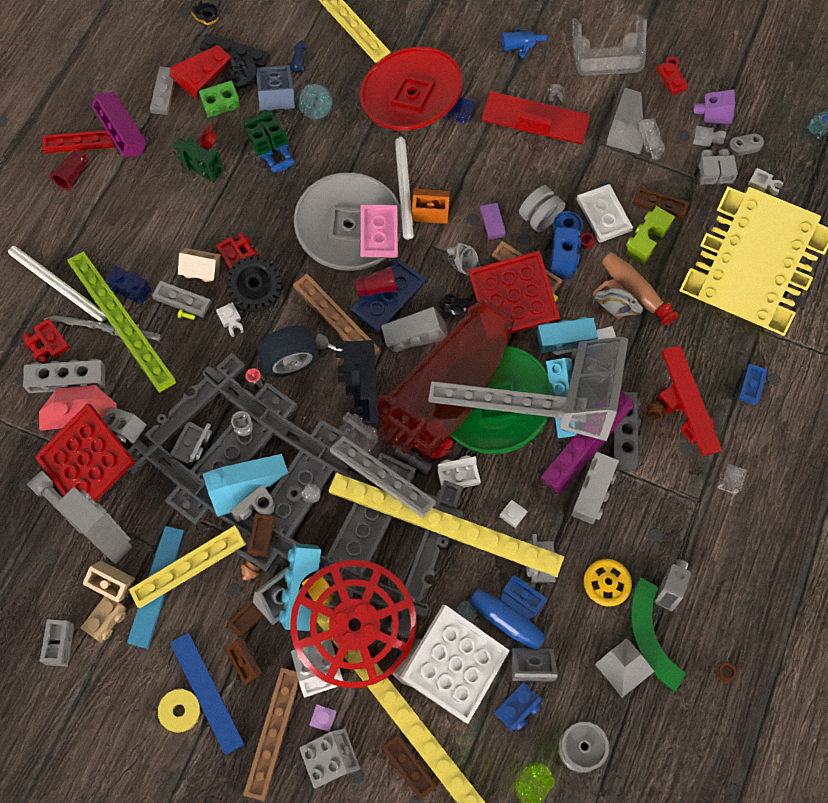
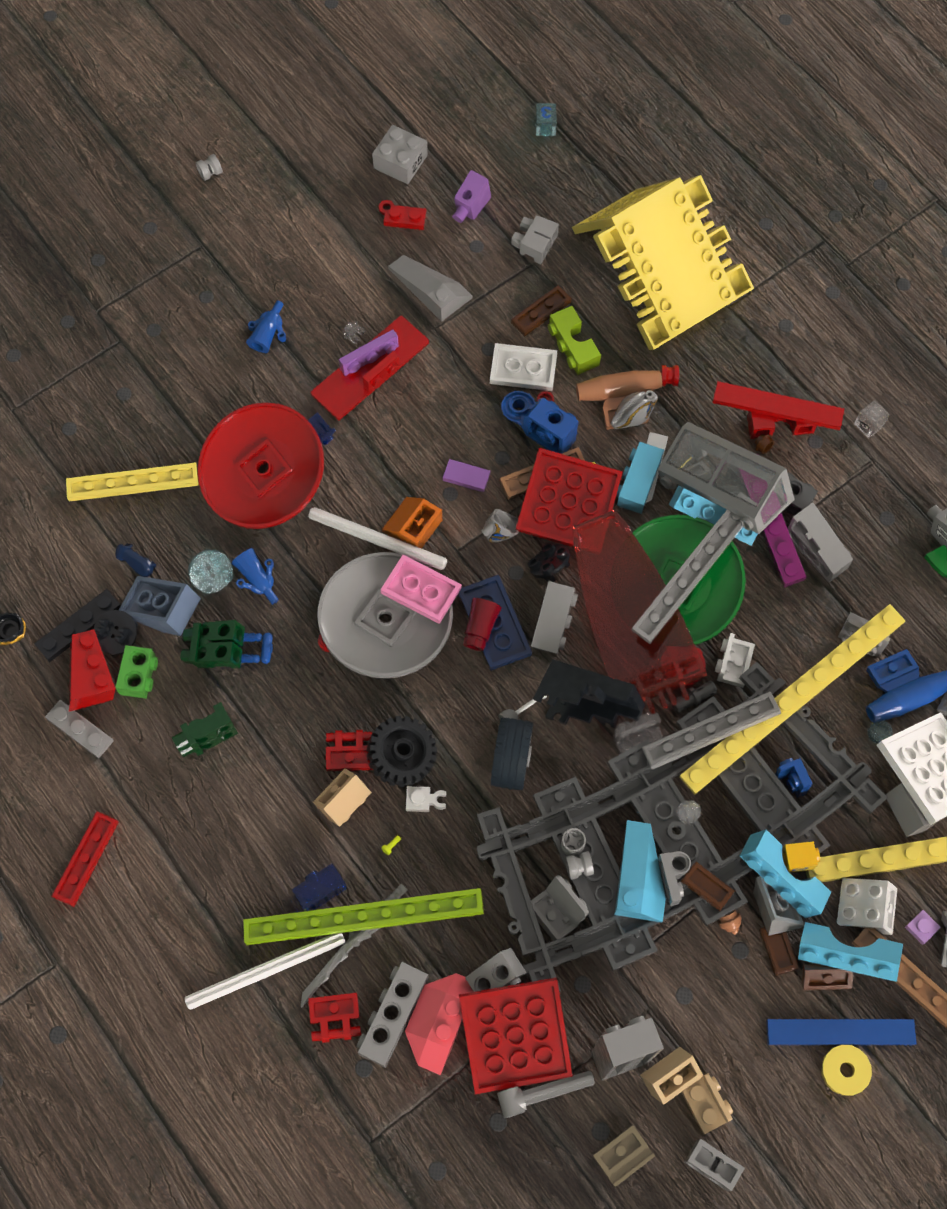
camera: 60 degrees left, 0 degrees up
(38, 578) = (623, 1156): none -> dark tan plate
(69, 170) = (123, 885): dark red plant -> none
(119, 124) = (98, 799): magenta brick -> none
(148, 615) = (698, 1030): dark azure tile -> none
(181, 299) = (370, 839): light grey plate -> none
(187, 566) = (702, 982): light yellow plate -> none
(207, 138) = (179, 711): red piece -> none
(227, 436) = (576, 865): none -> light grey wheel
(254, 377) = (516, 807): piece -> none
(270, 690) = (876, 960): none -> medium azure arch
(330, 311) = (482, 689): medium nougat plate -> none
(332, 131) = (259, 580): none -> blue piece
(343, 613) = (845, 843): red dish -> none
(388, 557) = (798, 778): none -> blue bracket
(513, 513) = (801, 633): white plate -> none
(541, 208) = (491, 419): light grey wheel -> none
(543, 107) = (369, 352): none -> medium lavender plate
(597, 595) = (901, 597): yellow plate -> none
(611, 60) = (348, 256): clear windscreen -> none
(651, 137) = (468, 274): clear bracket -> none
(705, 136) = (492, 227): light grey plate -> none
(719, 46) = (400, 154): none -> light grey brick
(747, 144) = (525, 197): light grey plate -> none
(752, 384) = (784, 345): blue plate -> none
(762, 180) = (575, 209): white plate -> none

